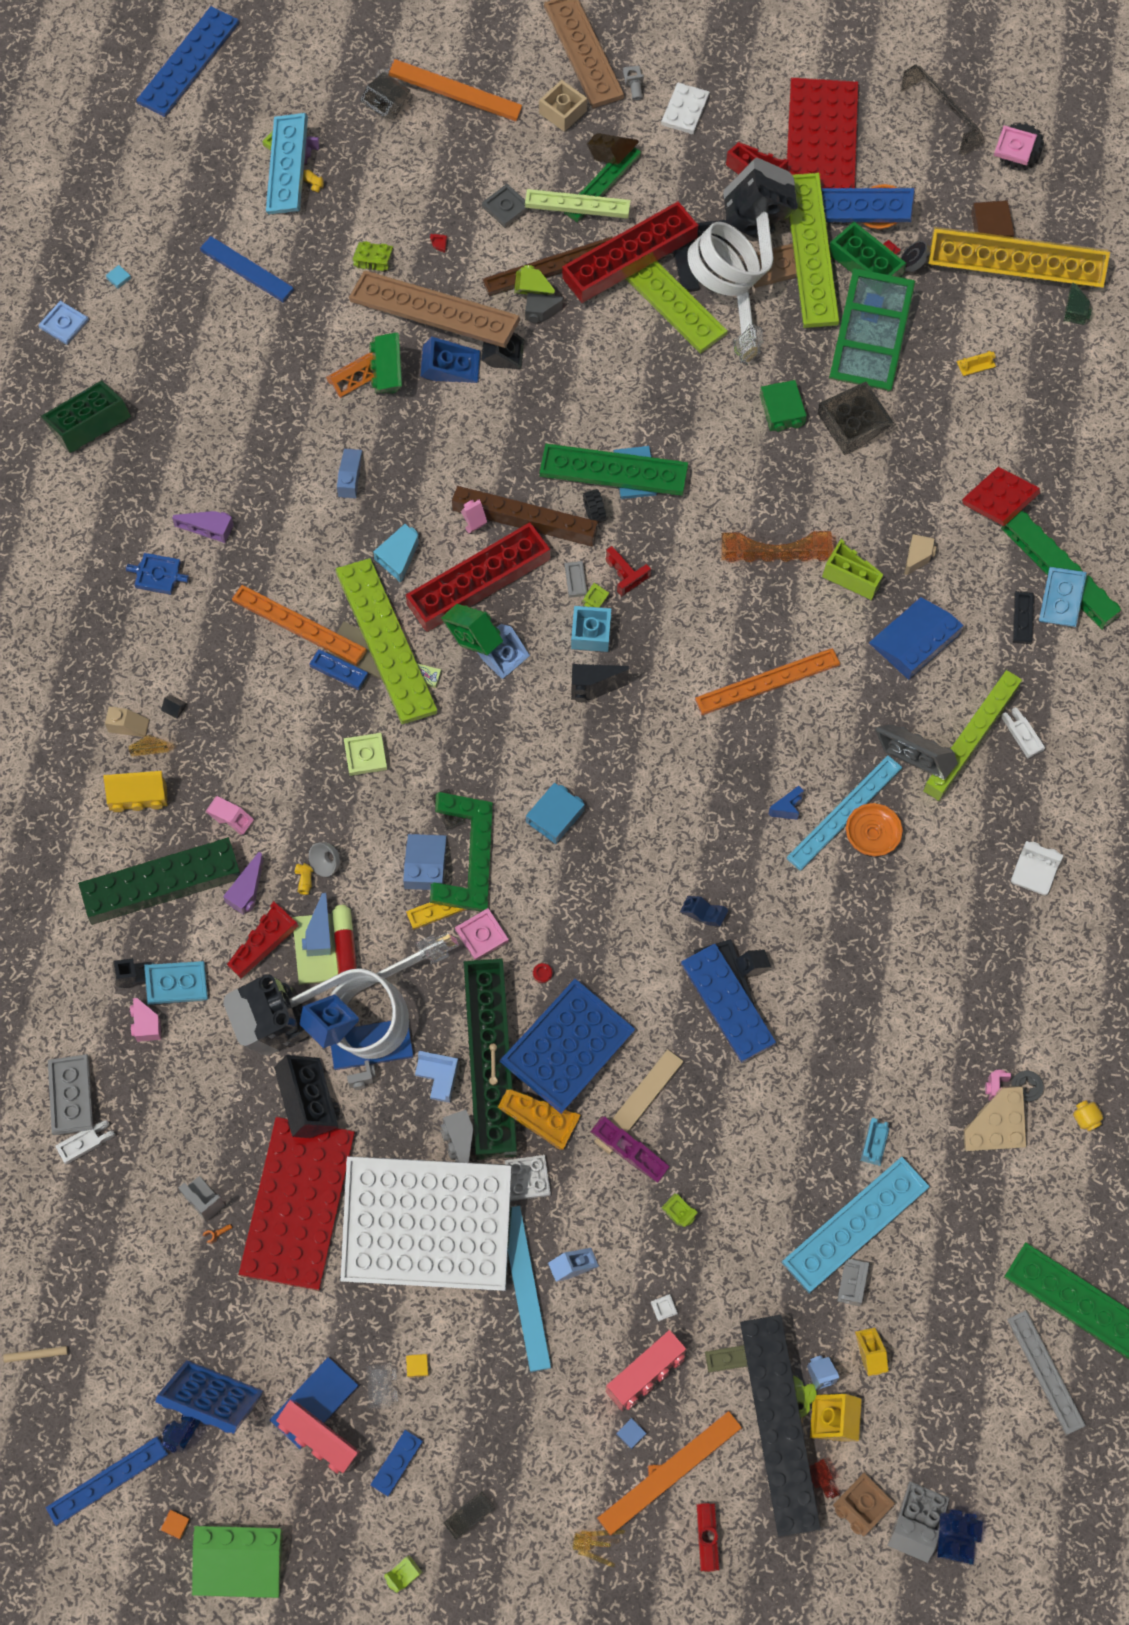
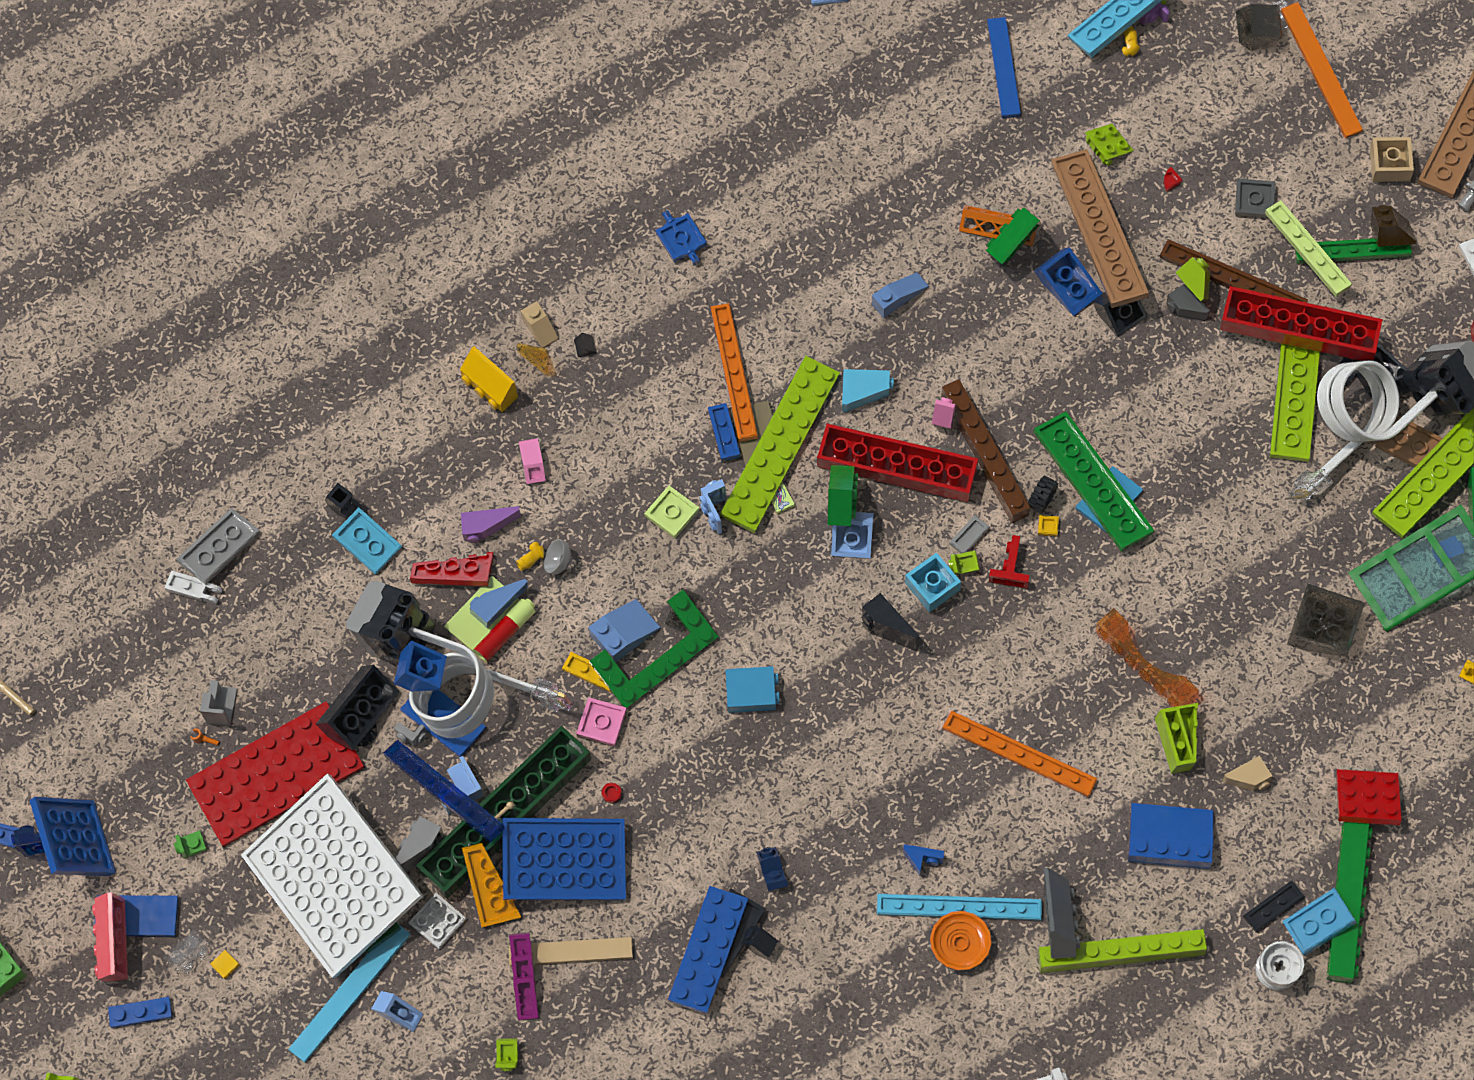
camera: 55 degrees right, 0 degrees up
(86, 416) = (762, 72): dark green slope -> none
(146, 1022) = (318, 547): bright pink slope -> none
(159, 881) = (435, 459): dark green brick -> none
(208, 524) = (755, 234): medium lavender slope -> none
(294, 1313) = (190, 844): none -> bright green bracket
(390, 724) = (710, 496): none -> light blue bracket
(435, 1086) = (444, 790): none -> clear blue plate
(617, 525) = (1048, 525): none -> yellow tile
(782, 406) = (1282, 559): green brick -> none
(1023, 733) = (1163, 992): white hinge -> none
(1073, 646) = (1291, 965): none -> white wheel

